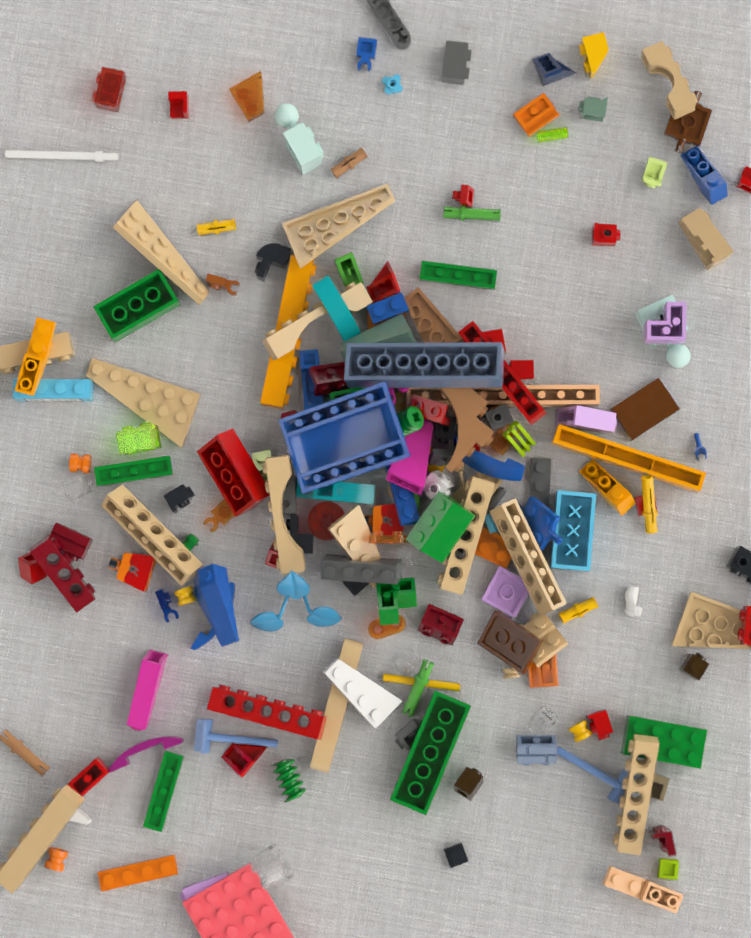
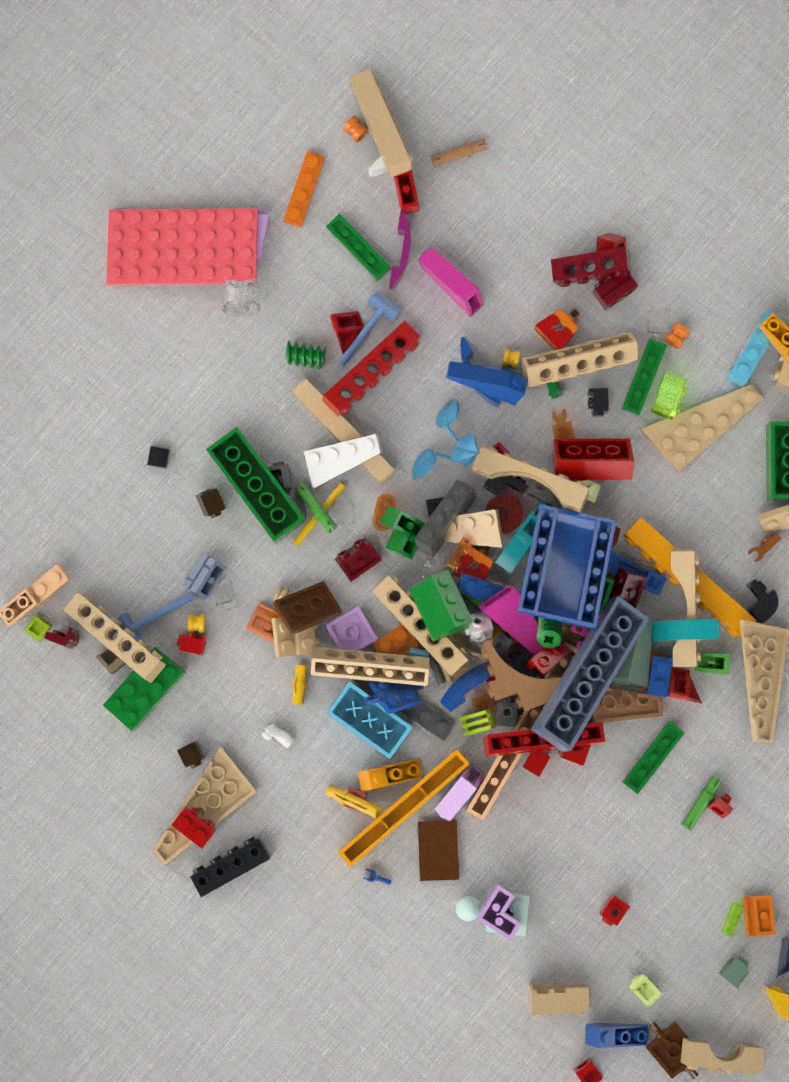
camera: 120 degrees right, 0 degrees up
(164, 600) = (517, 338): clear blue plate -> none

